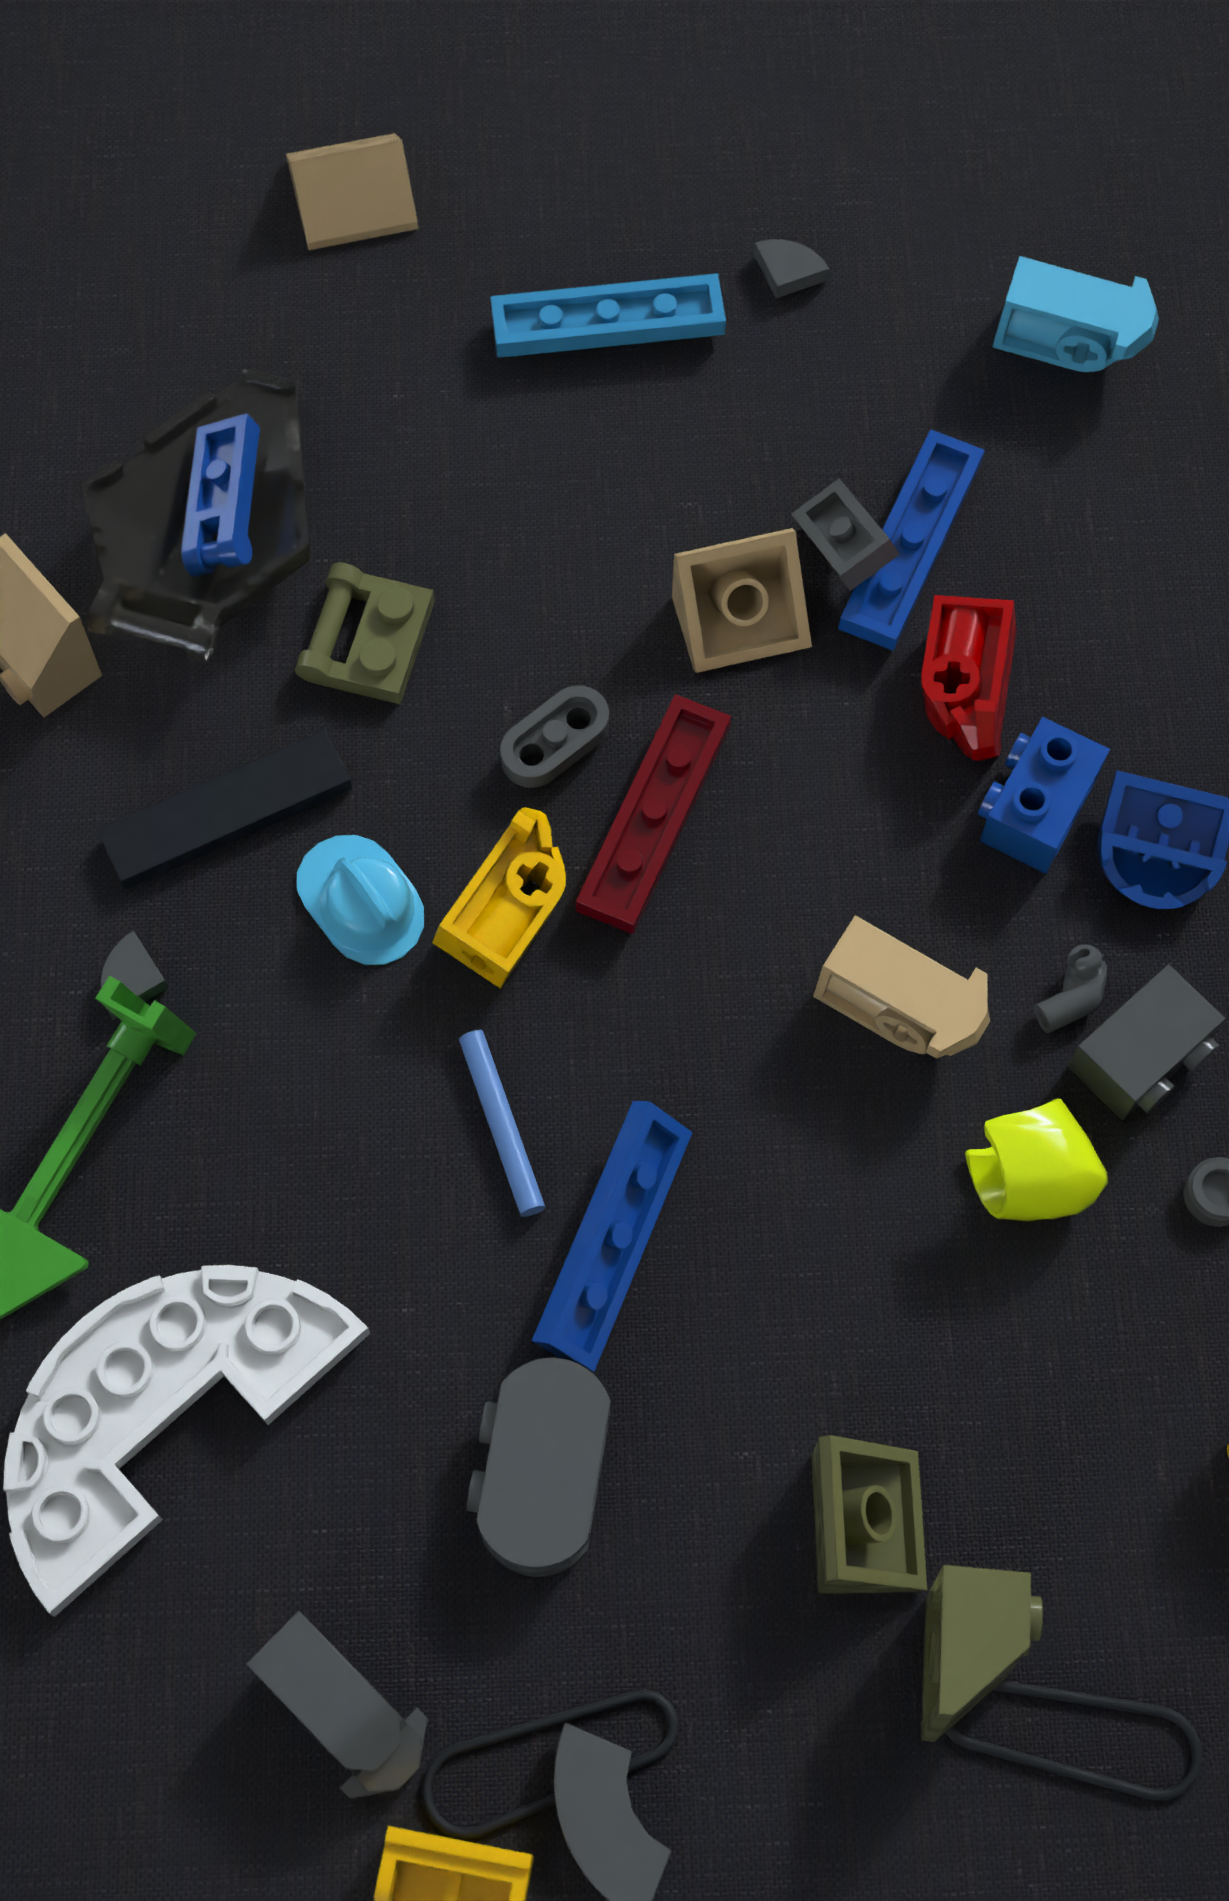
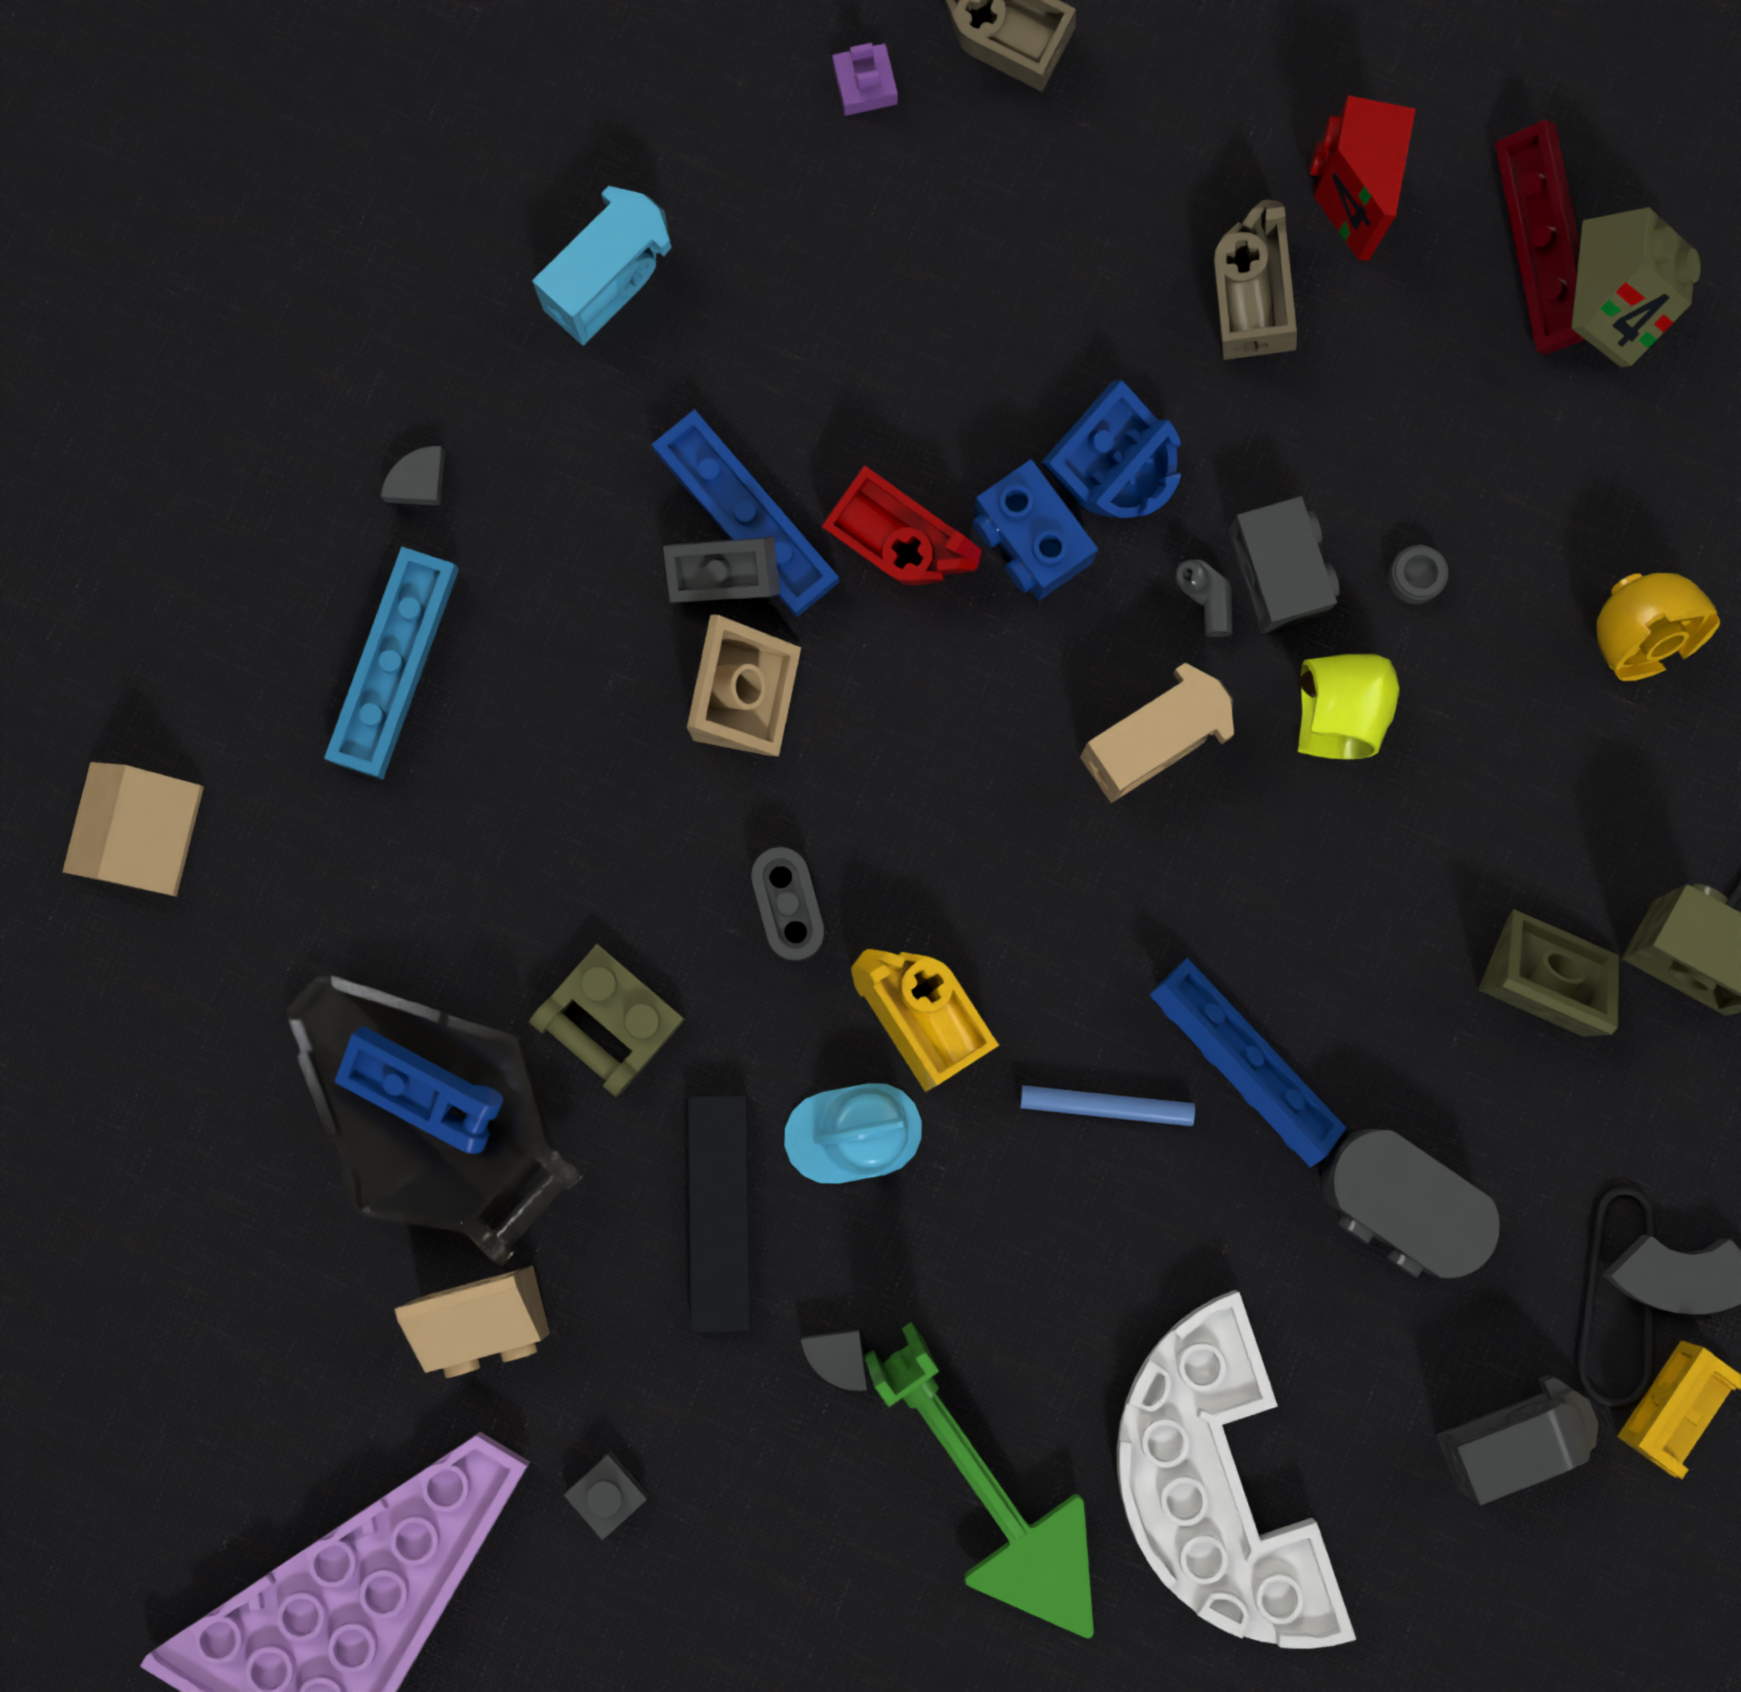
camera: 65 degrees left, 15 degrees up
(653, 814) = (897, 854): dark red plate -> none

